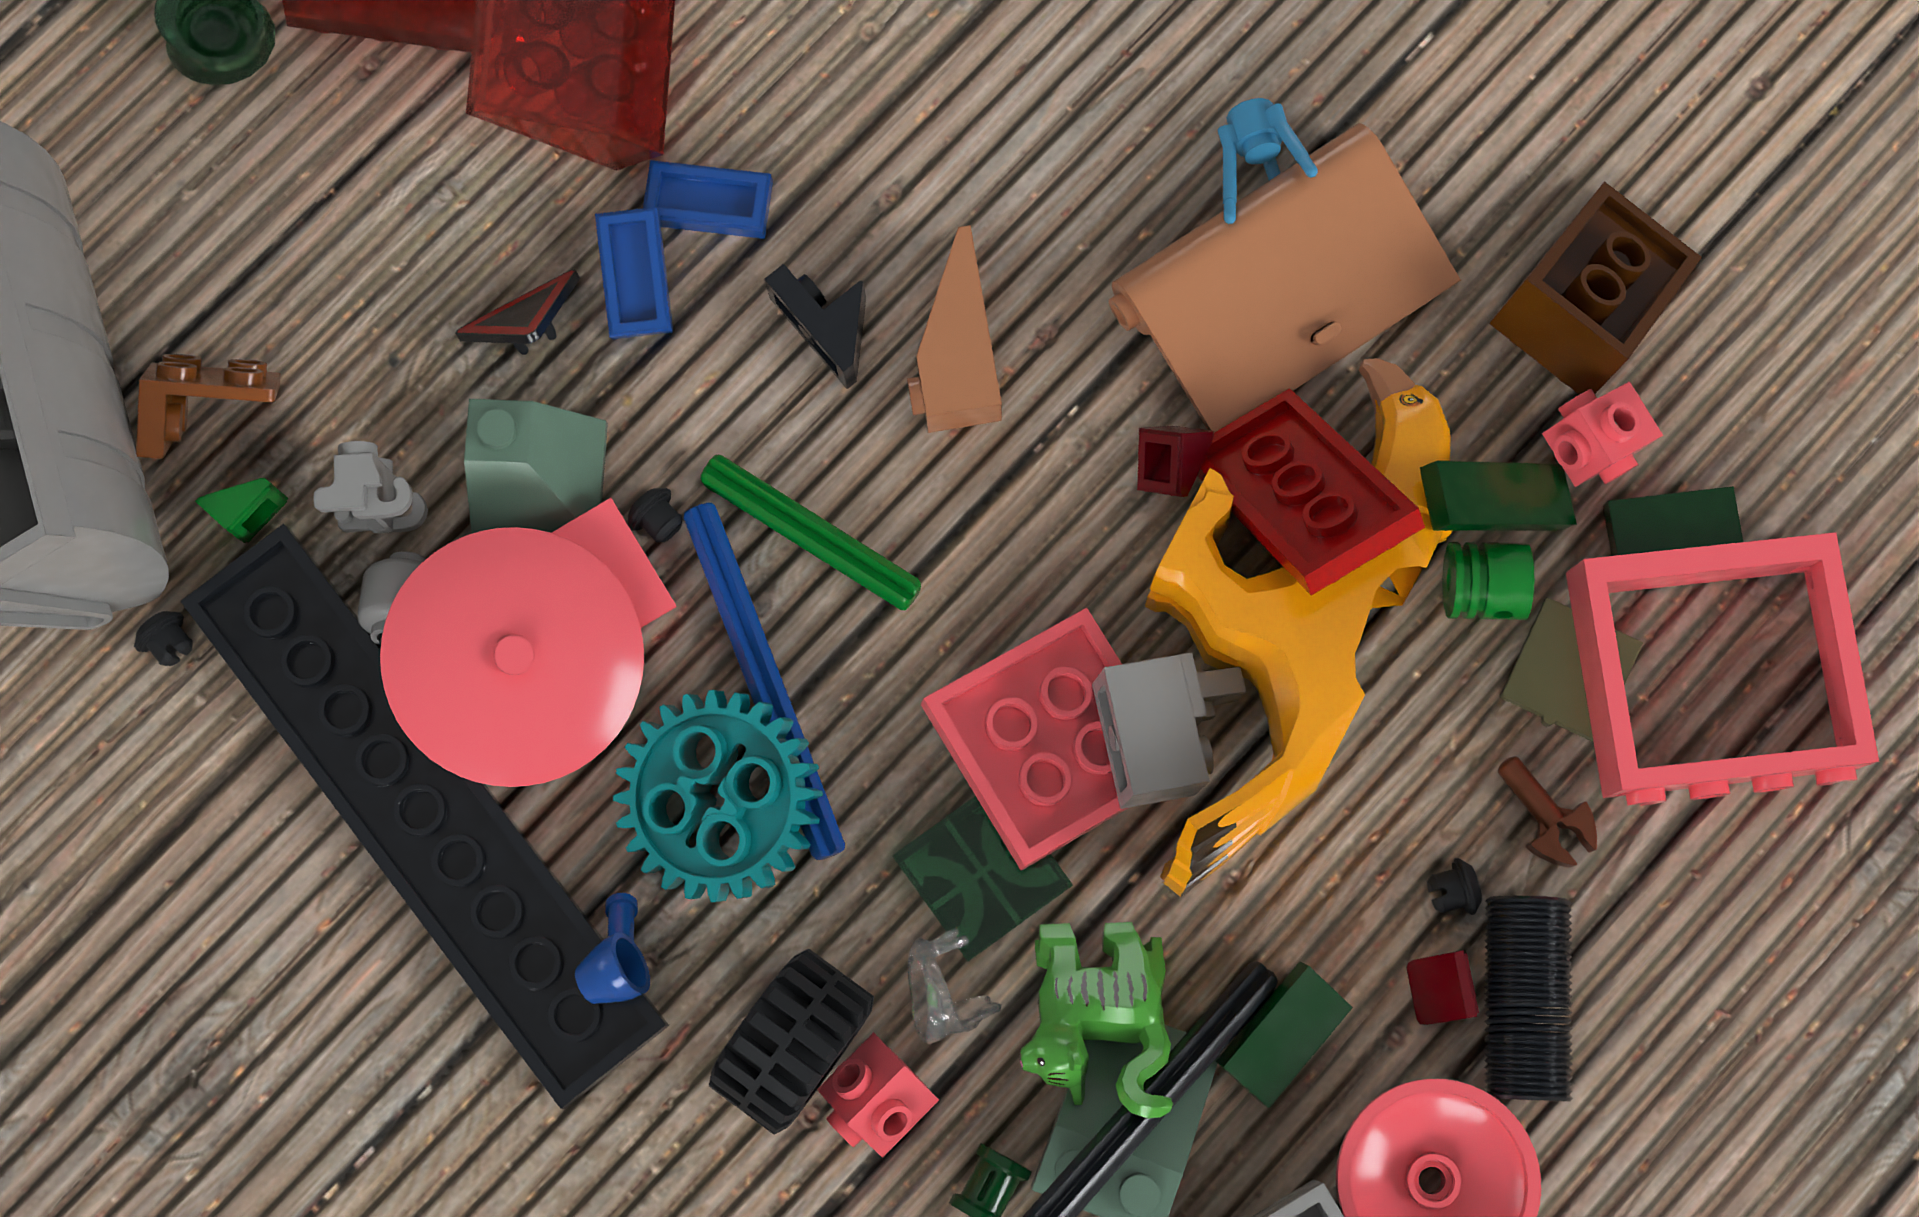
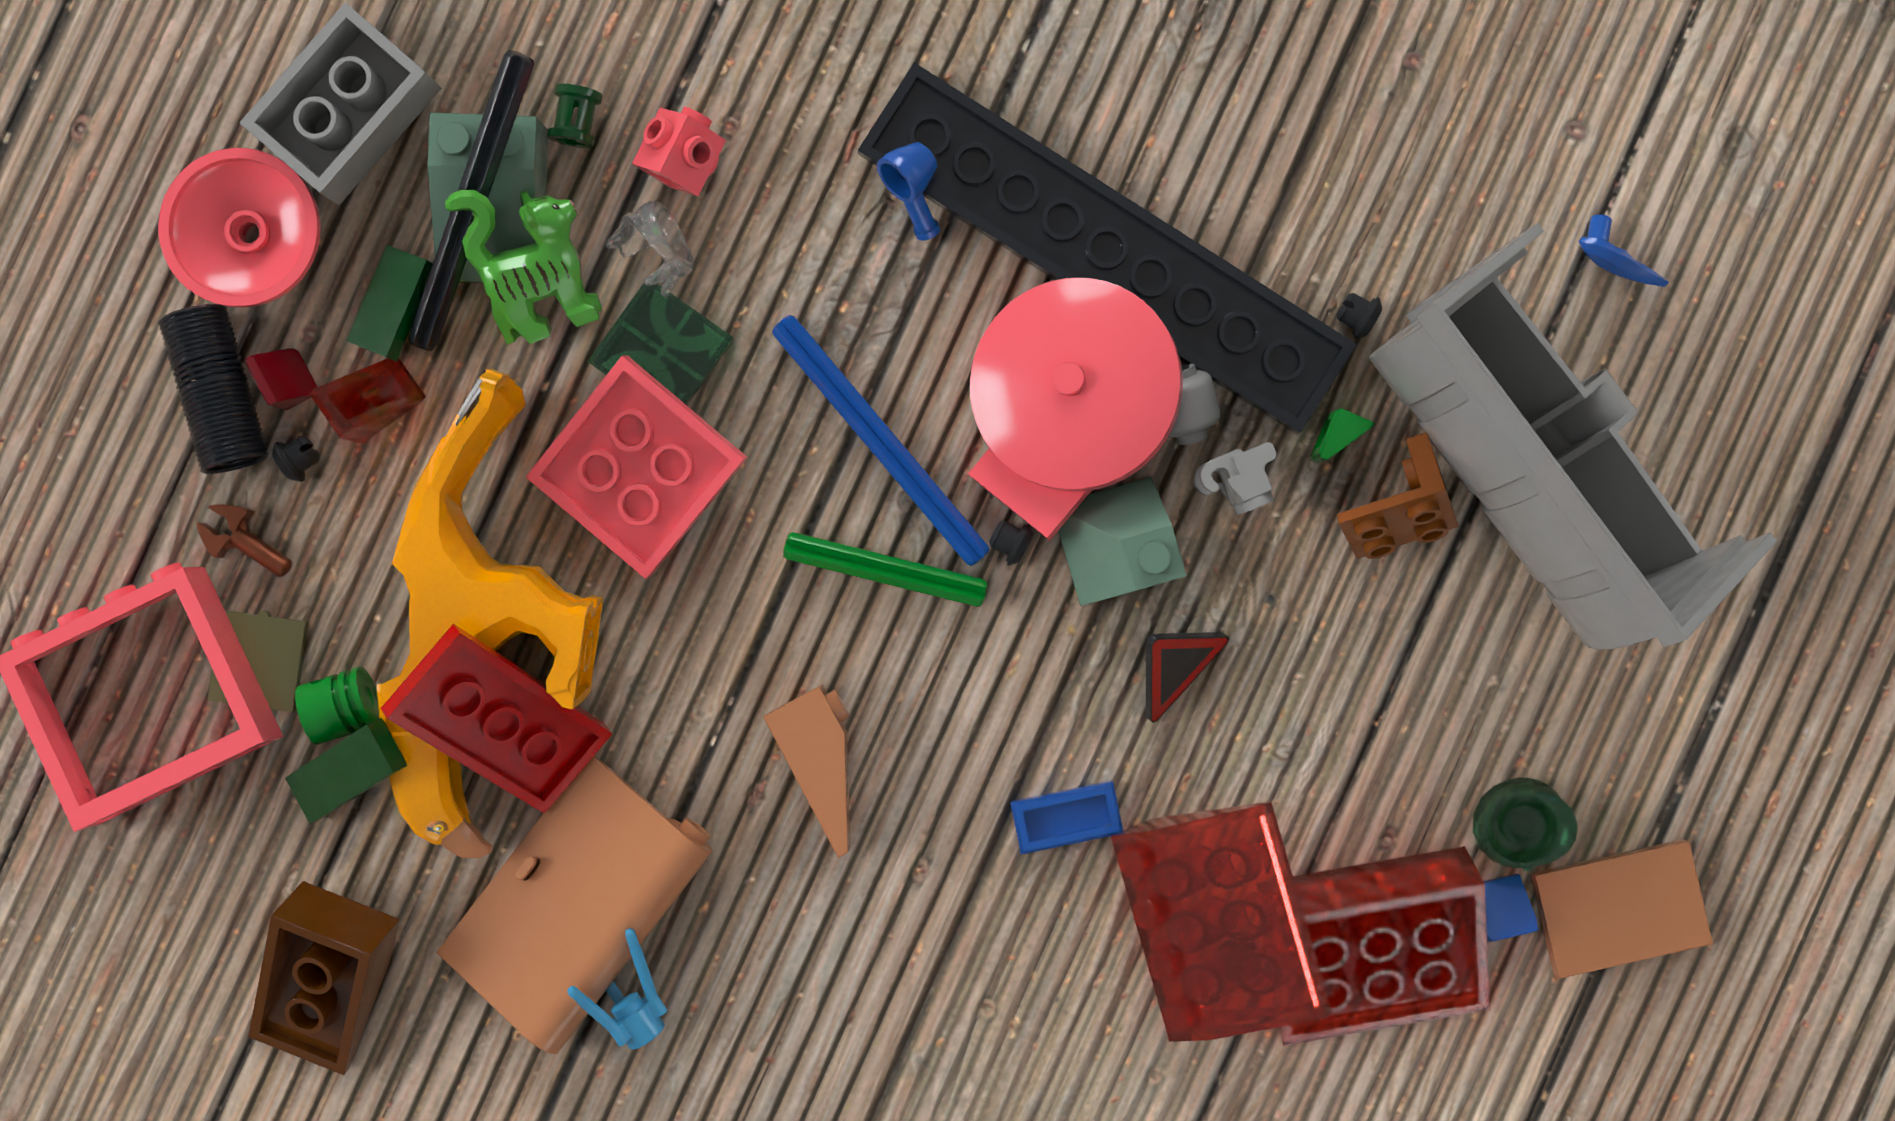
camera: 160 degrees right, 10 degrees up
(634, 273) = (1101, 732): blue tile -> none
(671, 766) = (834, 323): teal gear -> none
(790, 1041) = (751, 163): black tyre -> none
(831, 331) = (921, 732): black slope -> none
(1152, 721) = (558, 496): light grey hinge -> none
(1171, 458) = (618, 723): dark red slope -> none
(1344, 924) = (368, 399): none -> clear red slope
(1591, 442) = (290, 846): coral brick -> none
(1672, 521) = (209, 802): dark green tile -> none

